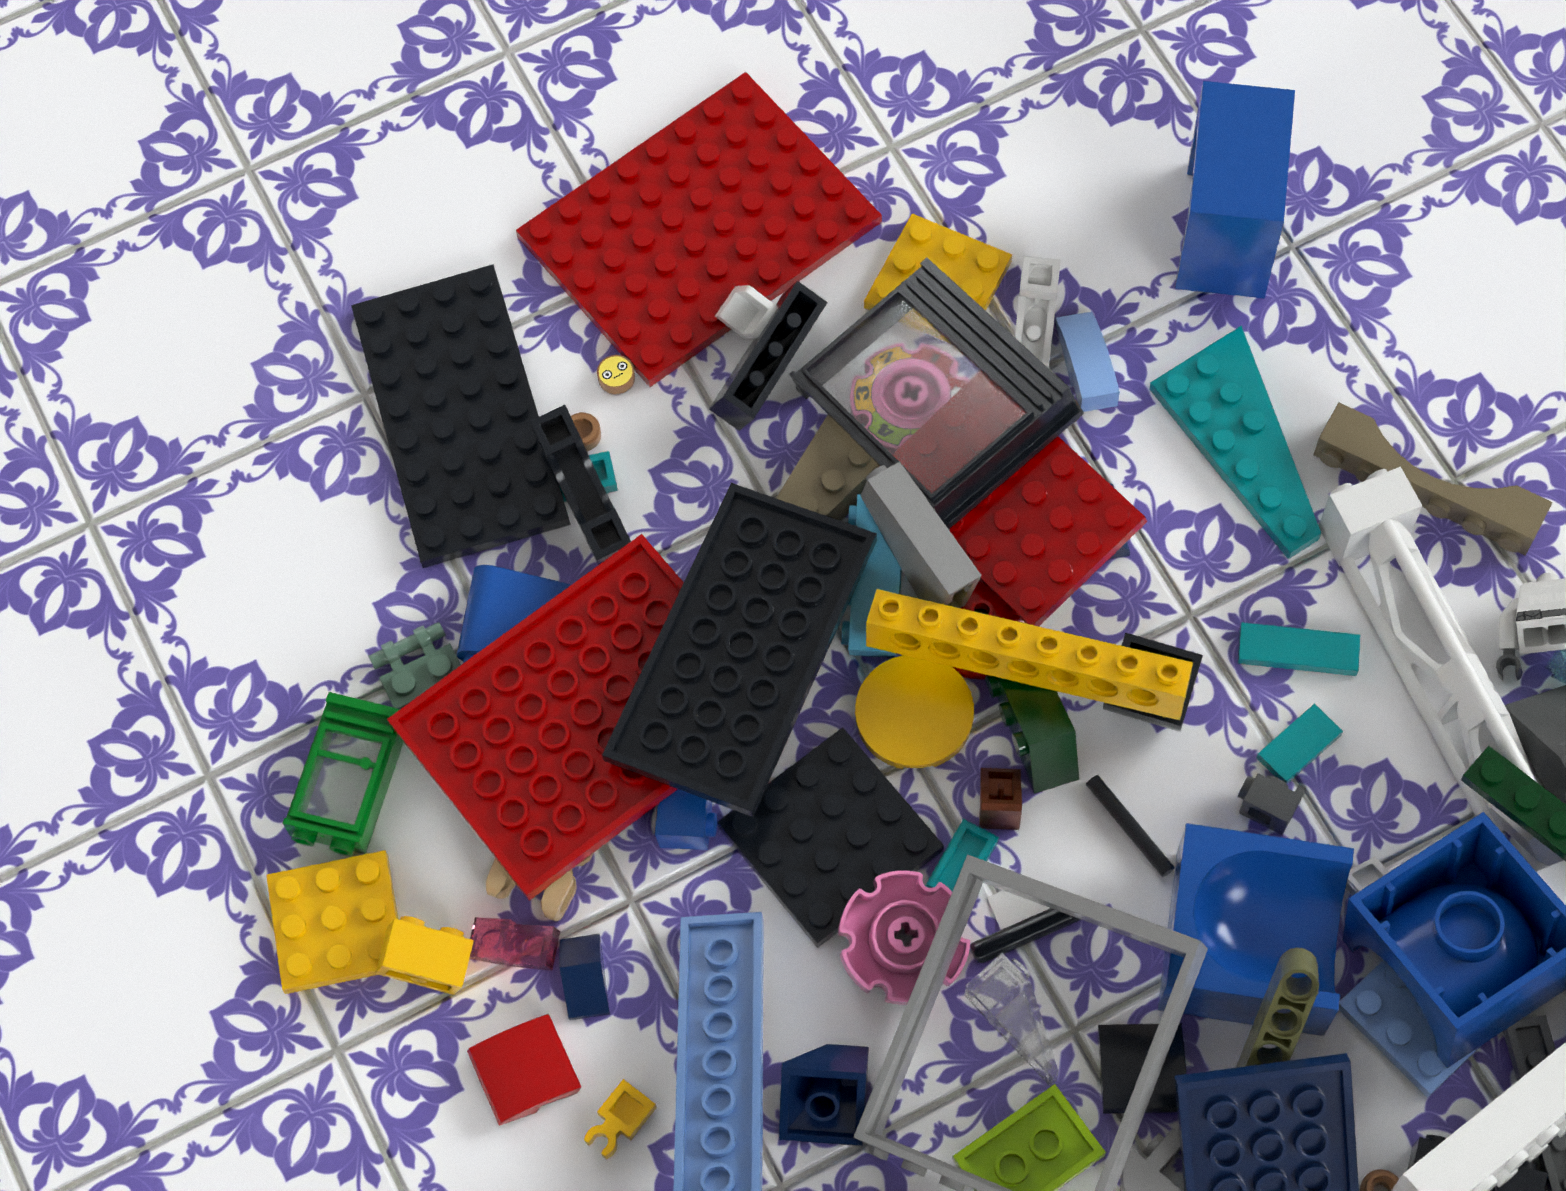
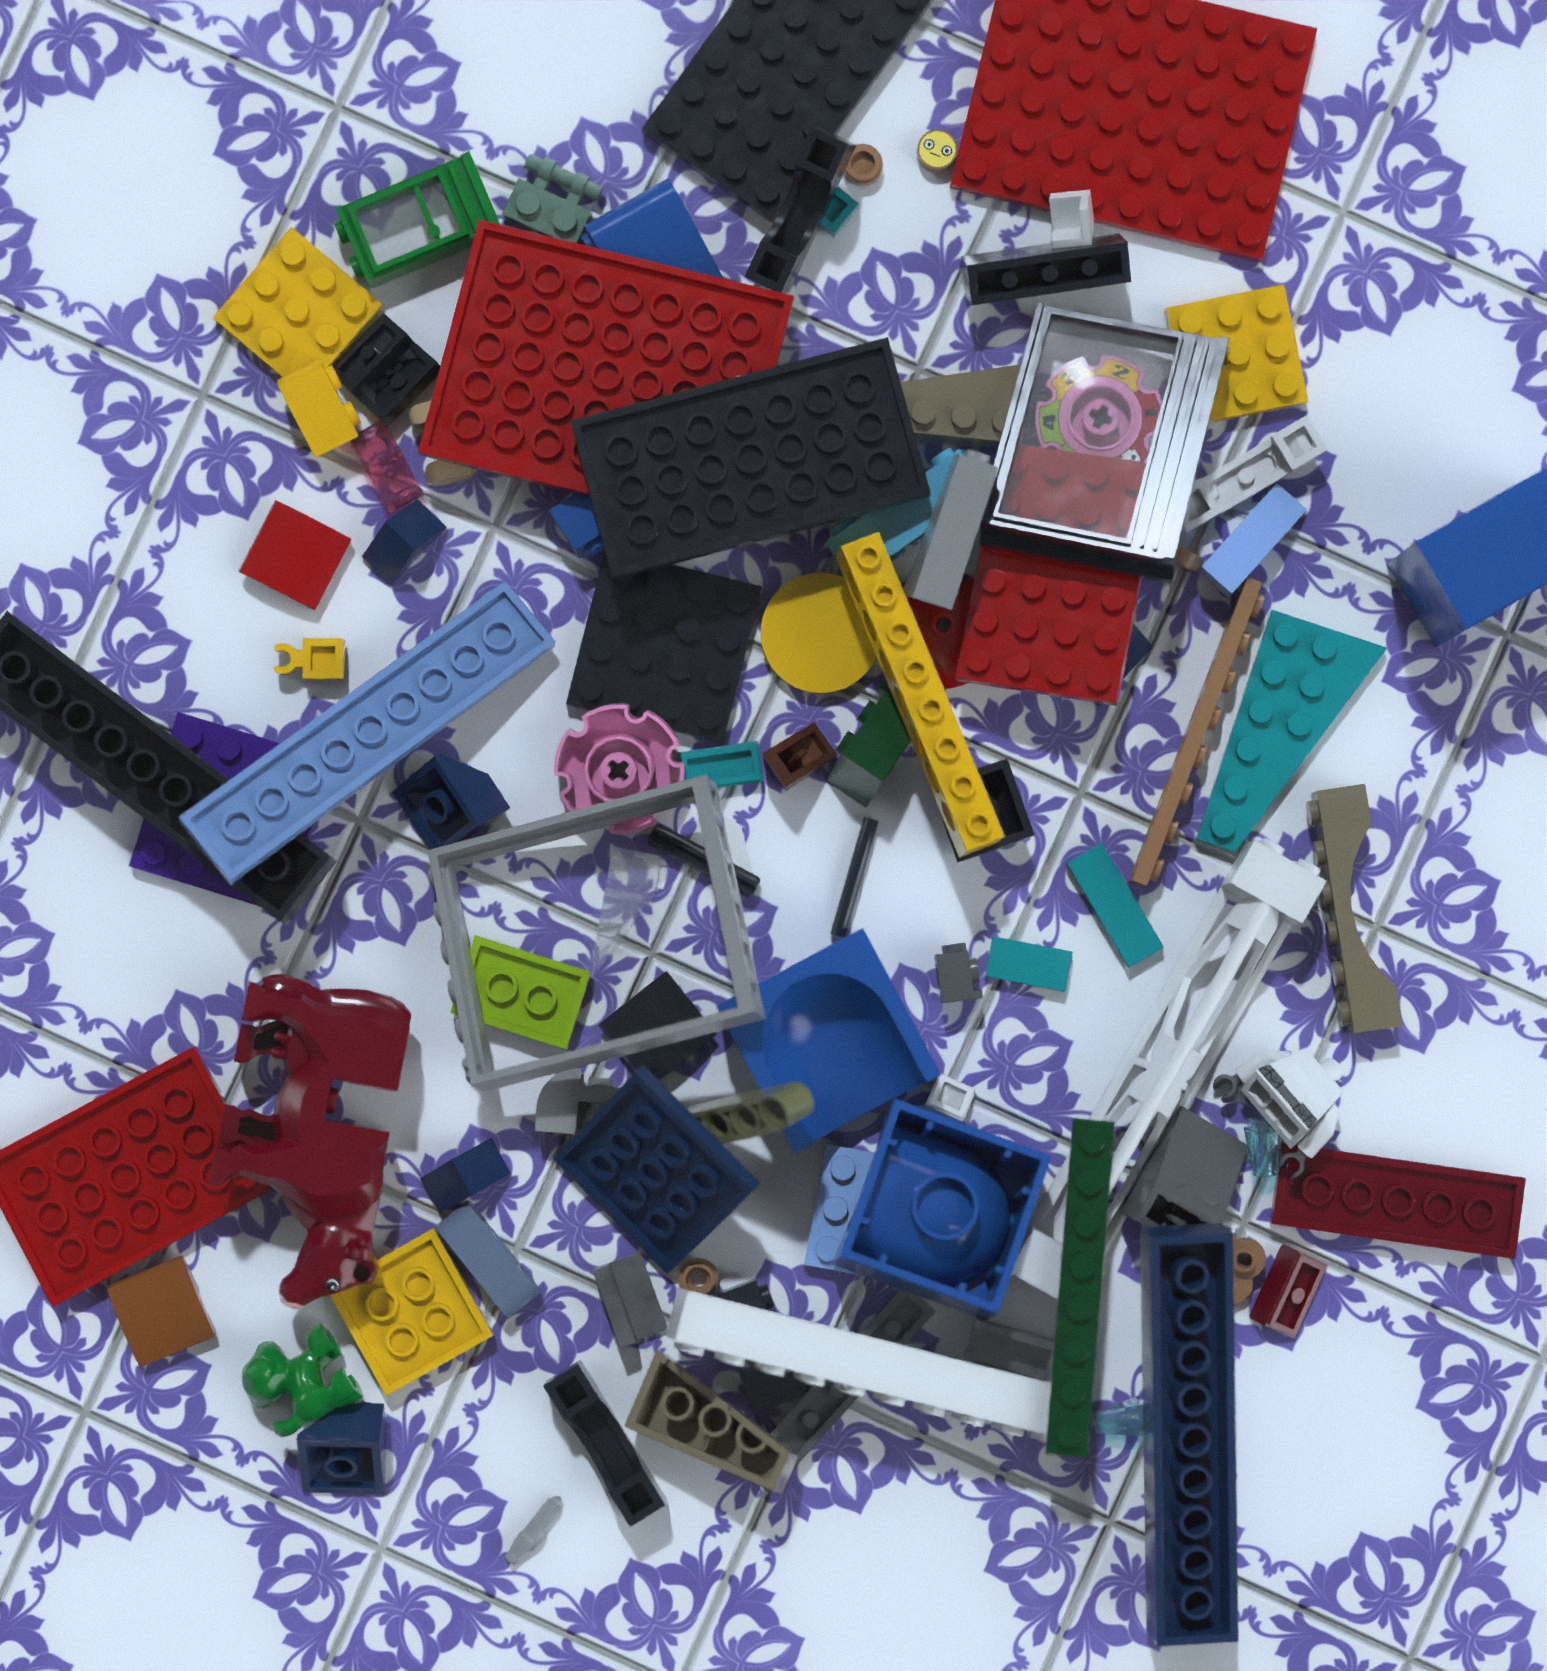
camera: 50 degrees right, 20 degrees up
(440, 884) = (386, 370): none -> black slope
(1215, 508) = (1203, 717): none -> medium nougat plate

